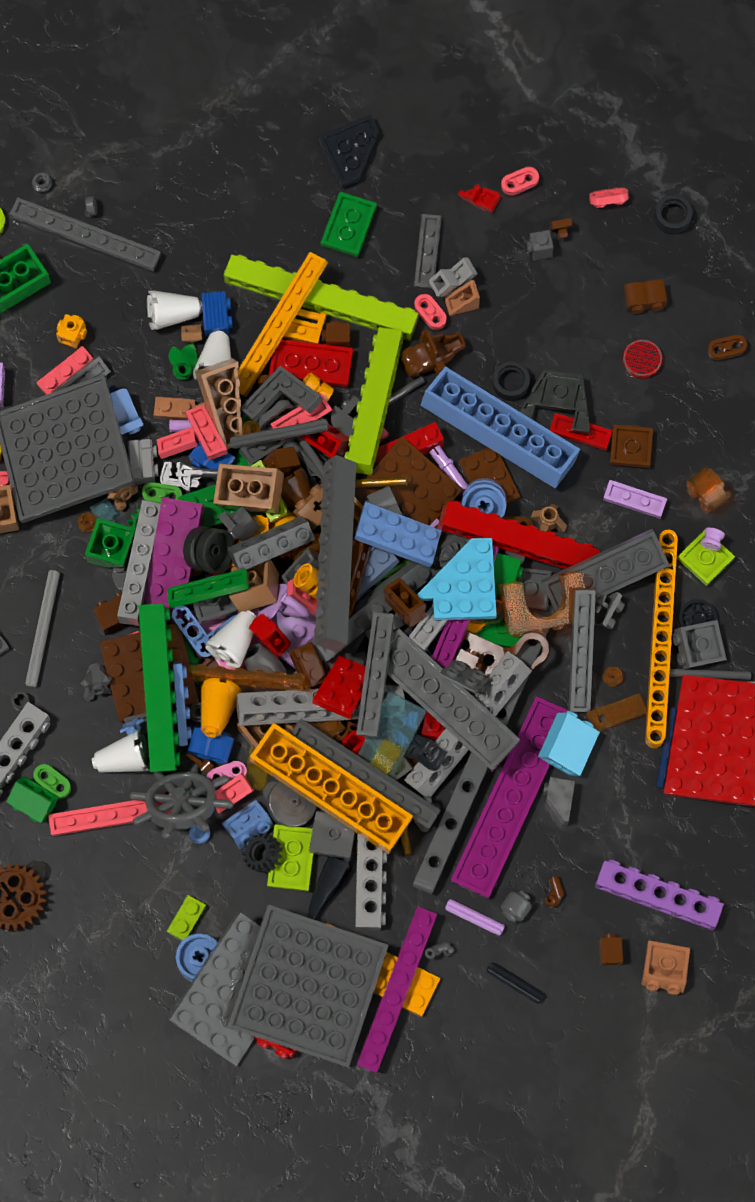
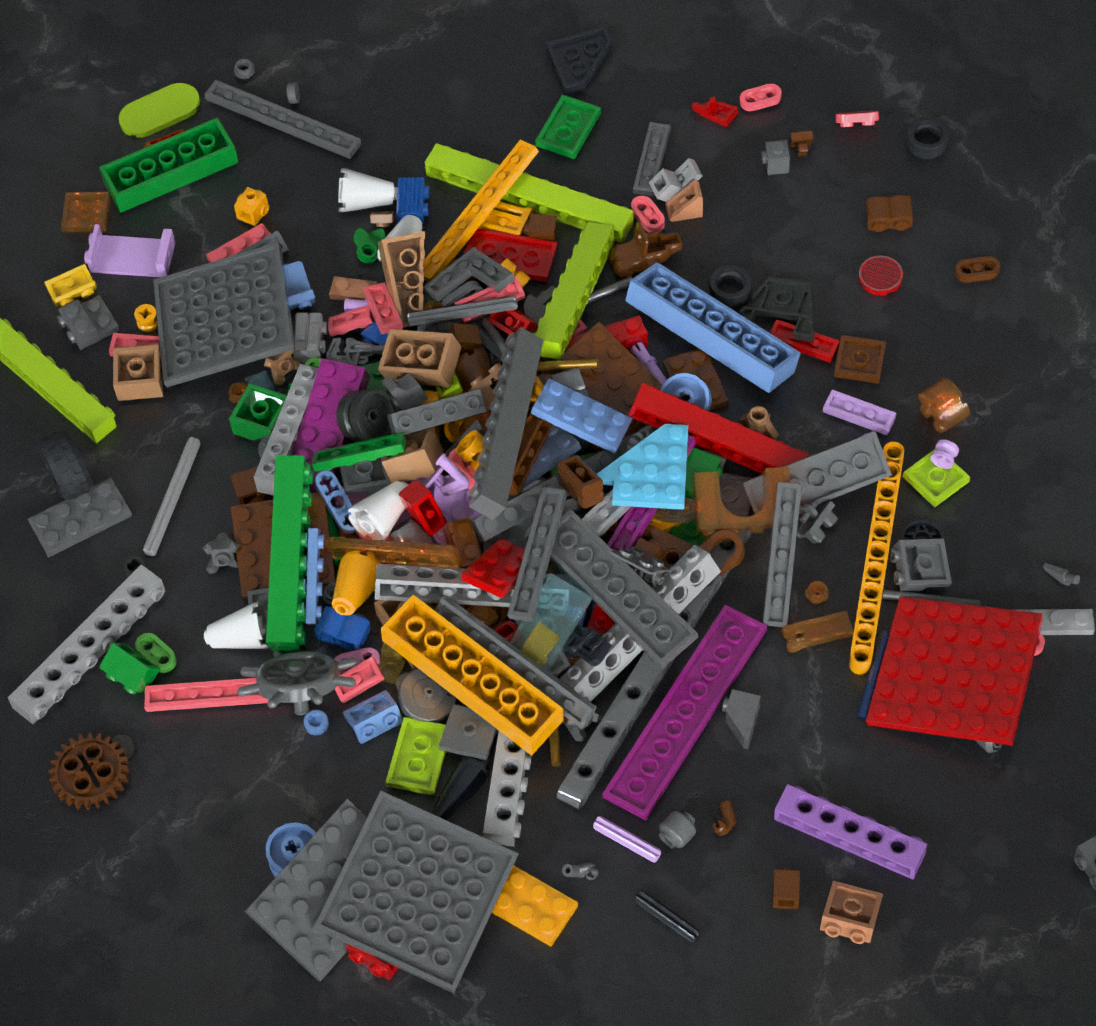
camera: 10 degrees right, 15 degrees down
(132, 726) = (255, 597): medium blue plate -> none
(186, 918) = (288, 809): lime plate -> none
(205, 766) = (333, 650): reddish brown hand -> none
(253, 849) = (387, 735): black tyre -> none
(396, 990) = (523, 909): magenta plate -> none
(569, 743) = (757, 655): medium azure brick -> none

